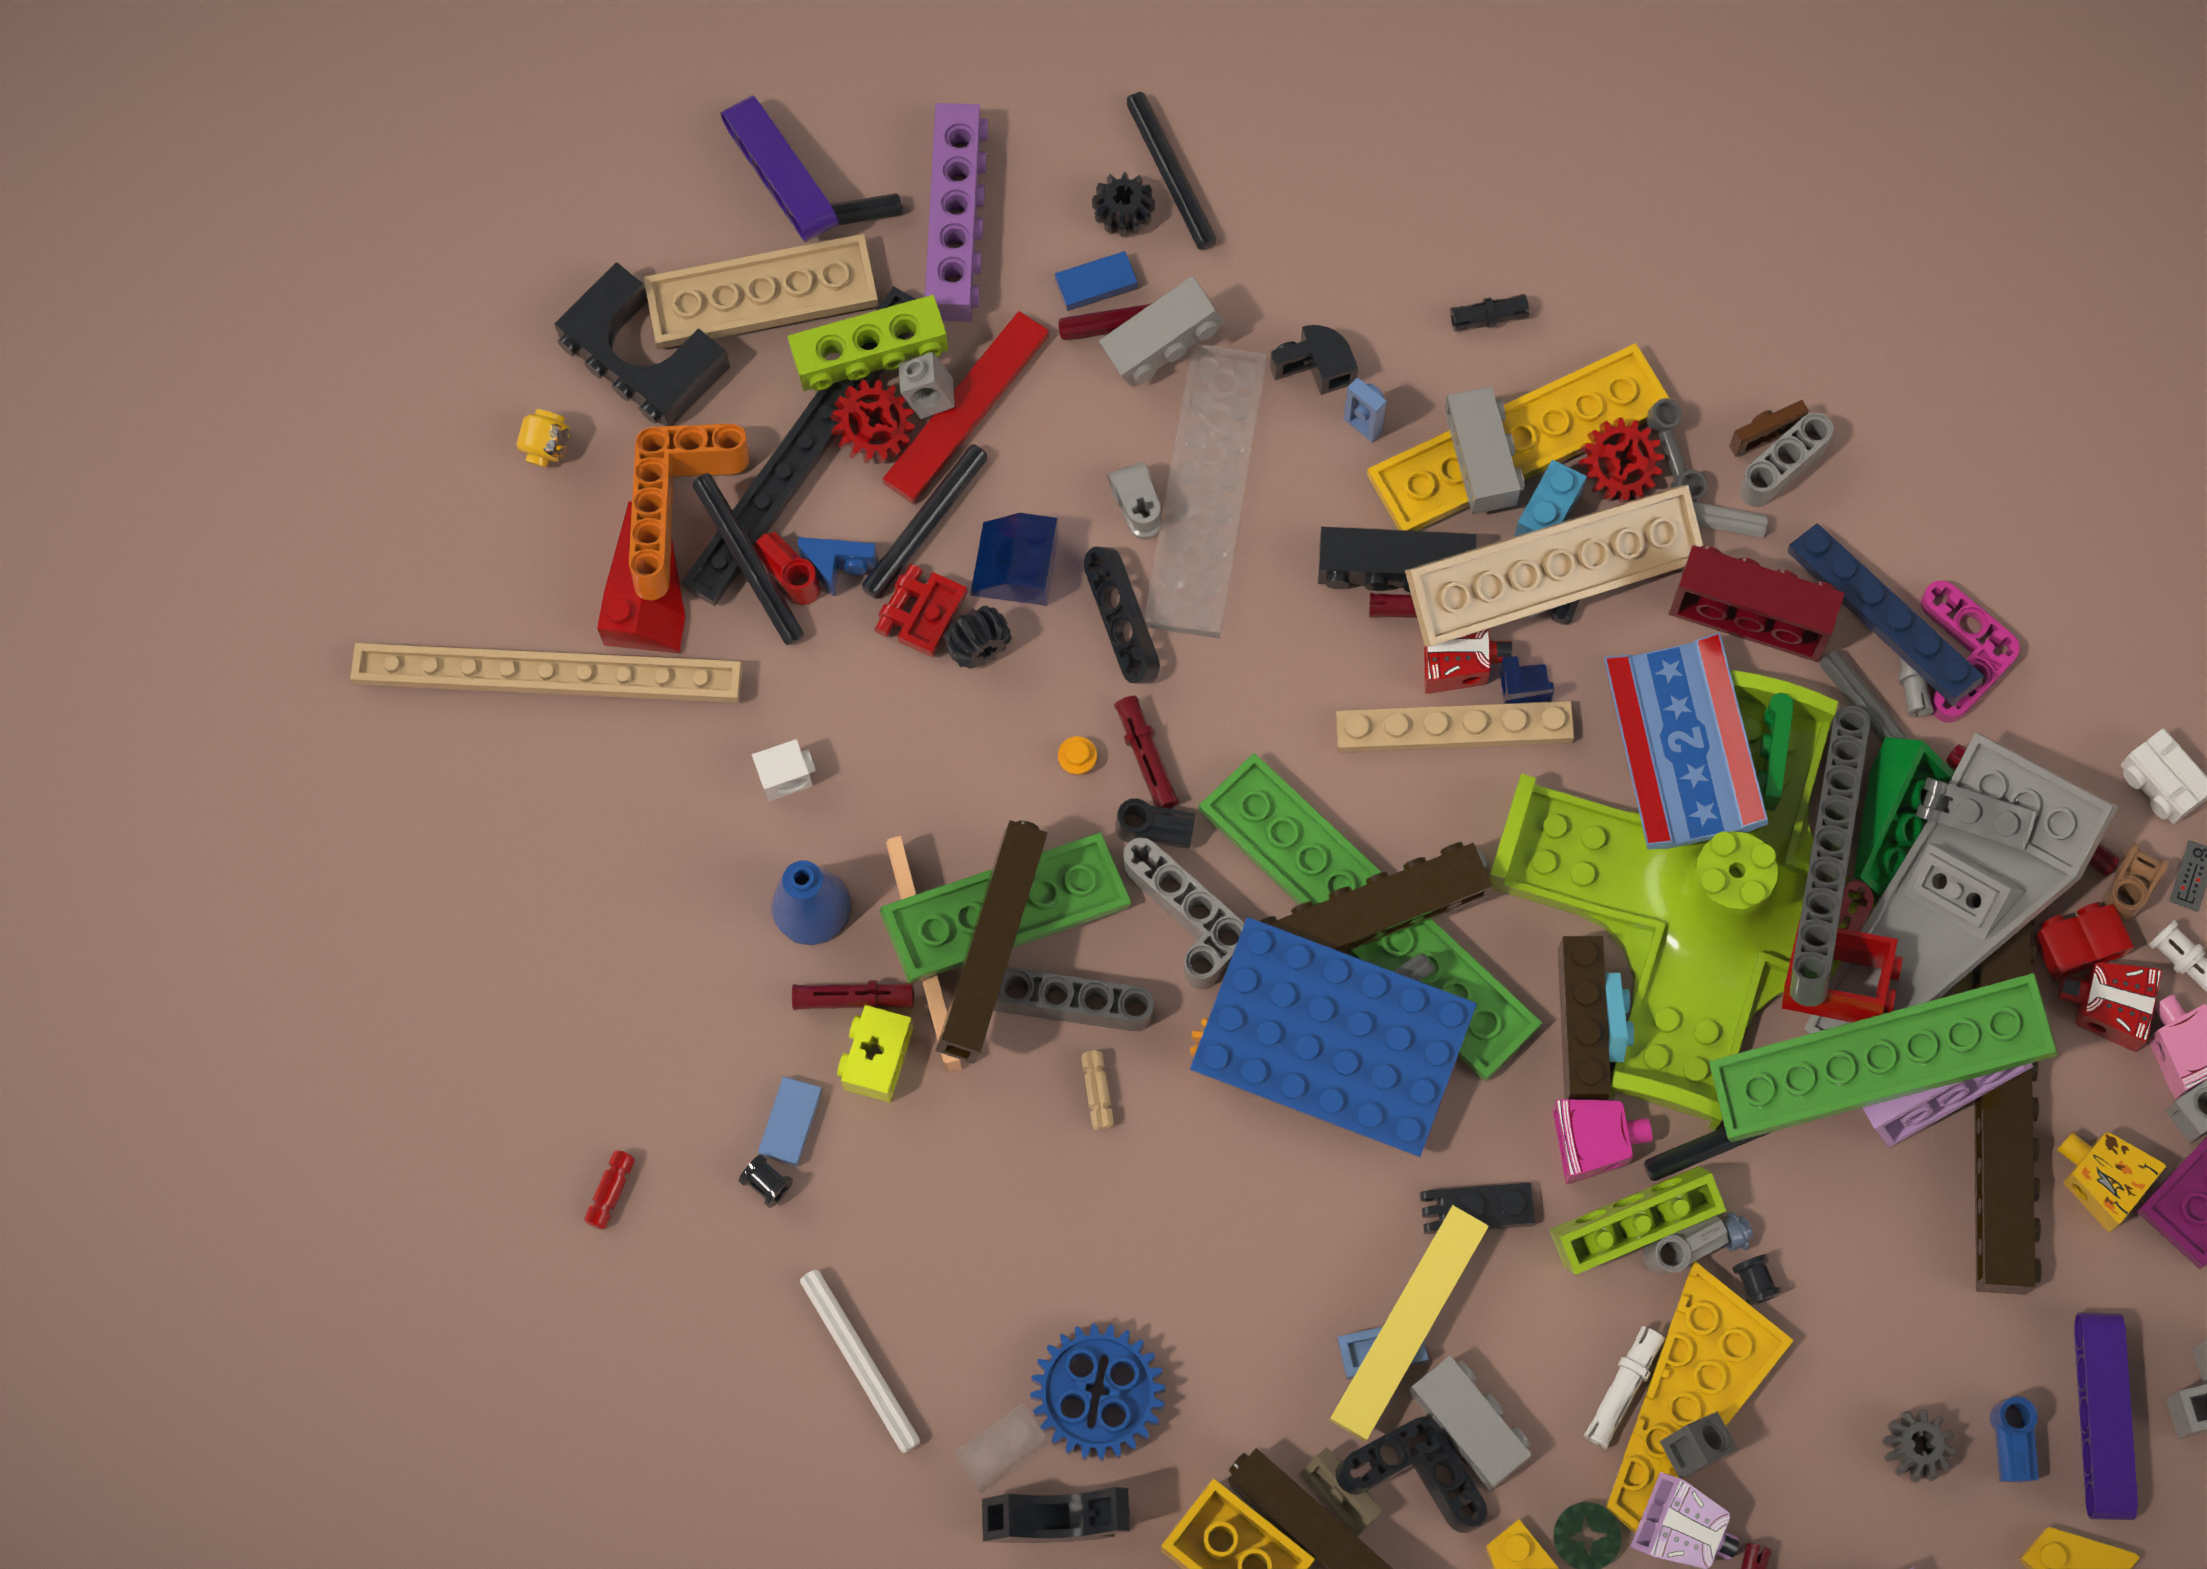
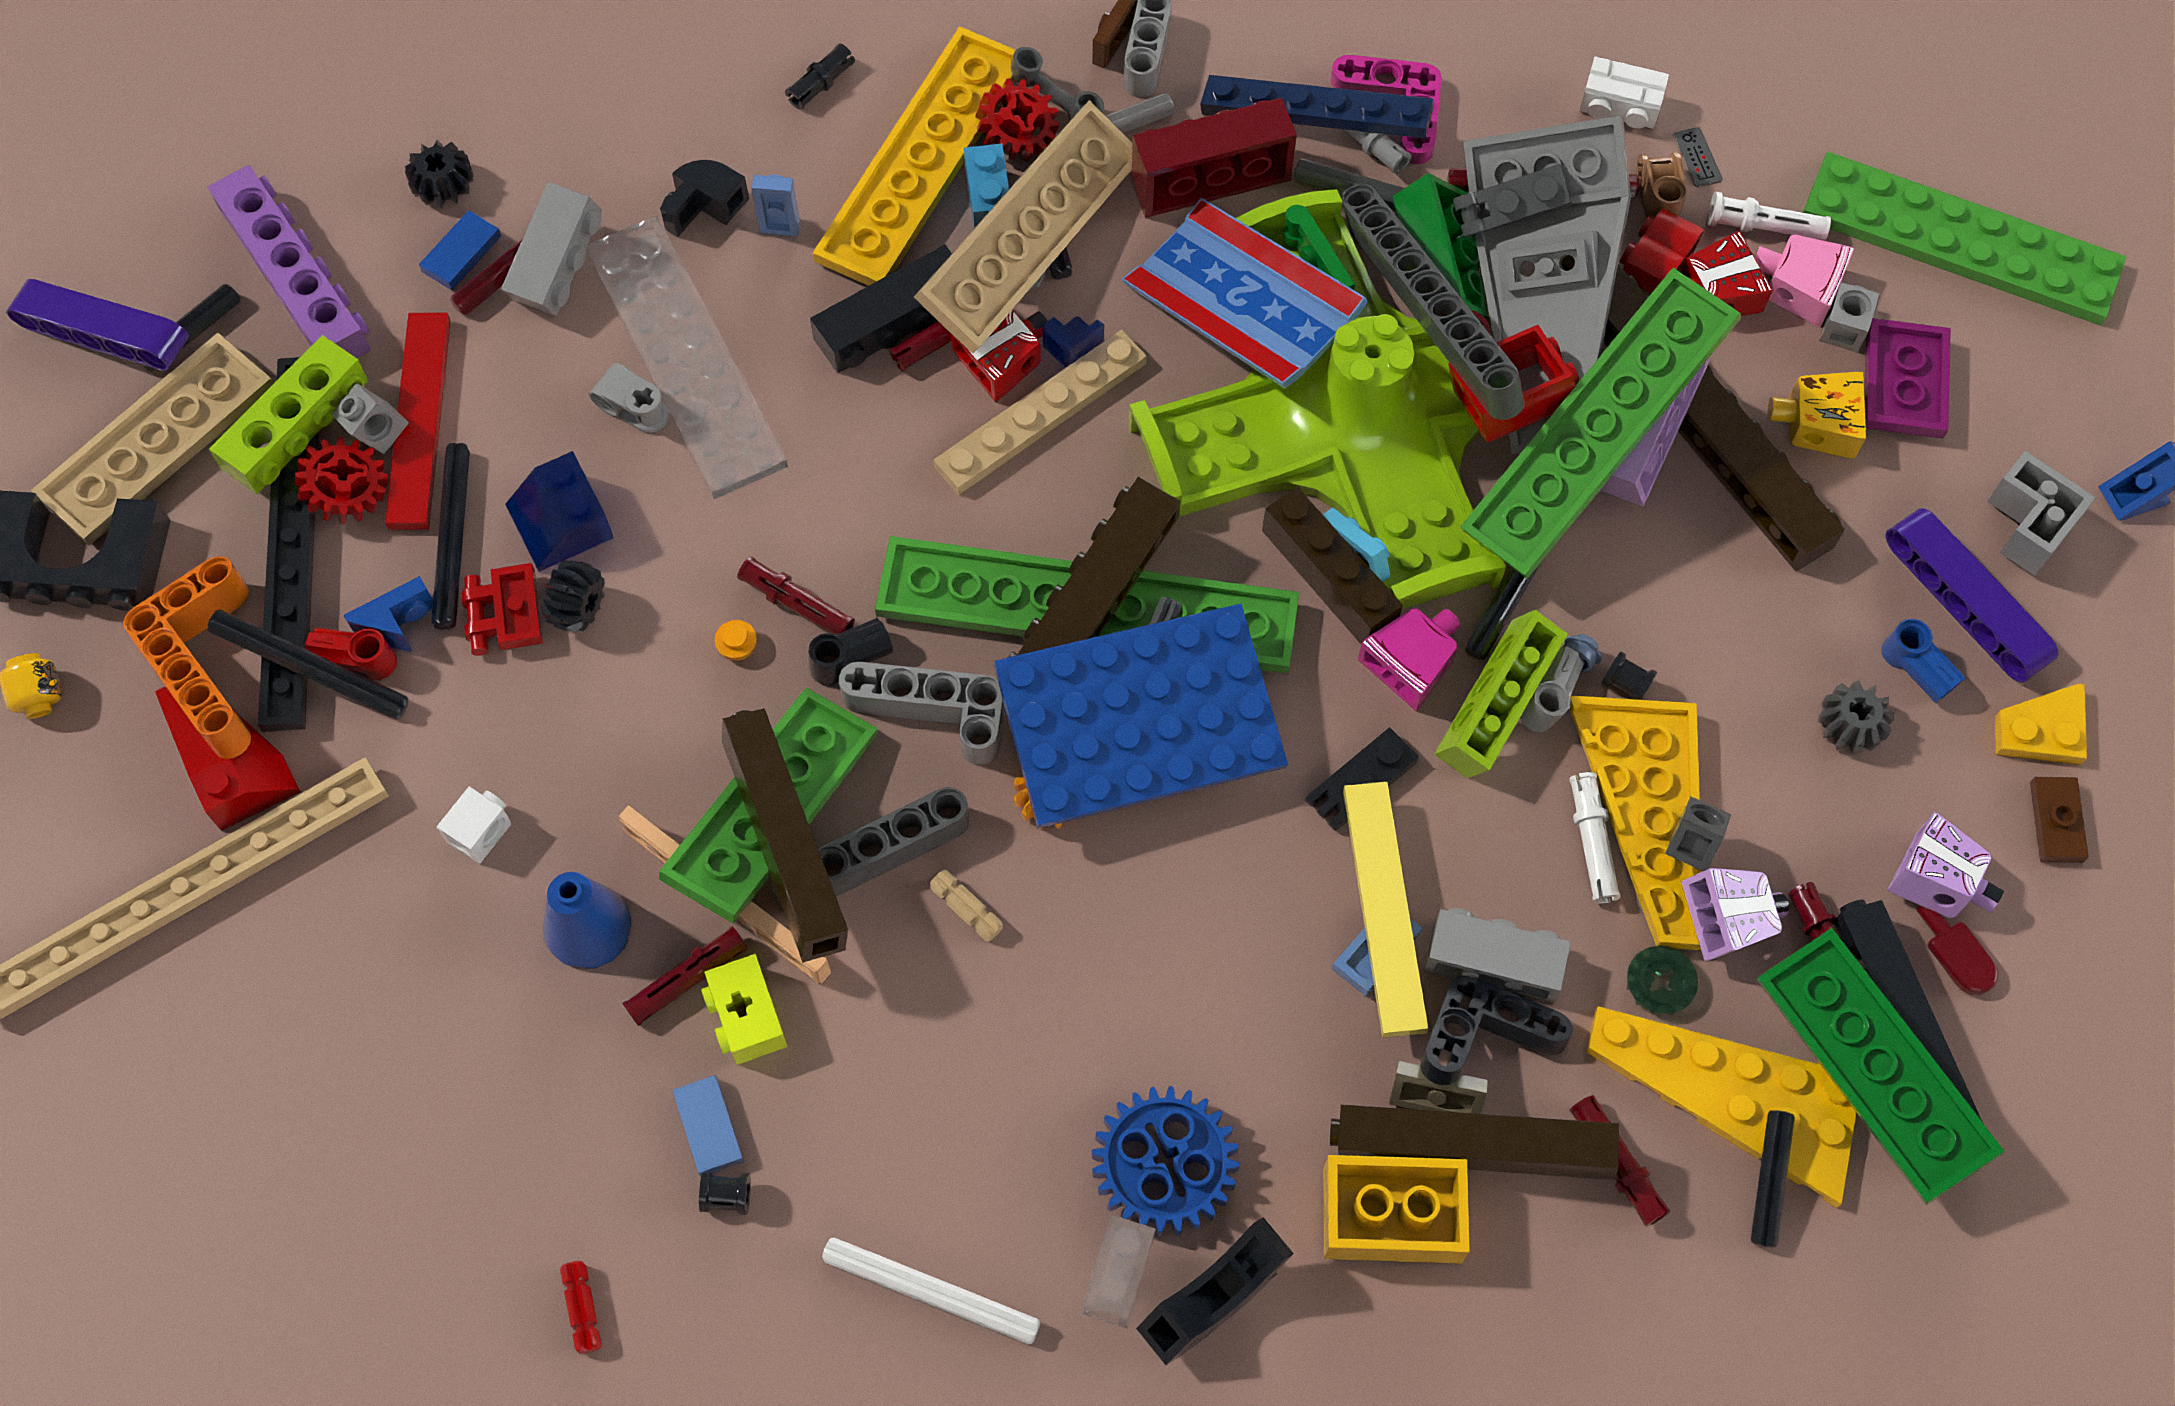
camera: 40 degrees left, 5 degrees down
(1137, 656) = (686, 504): black beam -> none
(1171, 171) = (461, 126): black axle -> none
(1483, 449) = (900, 175): light grey brick -> none

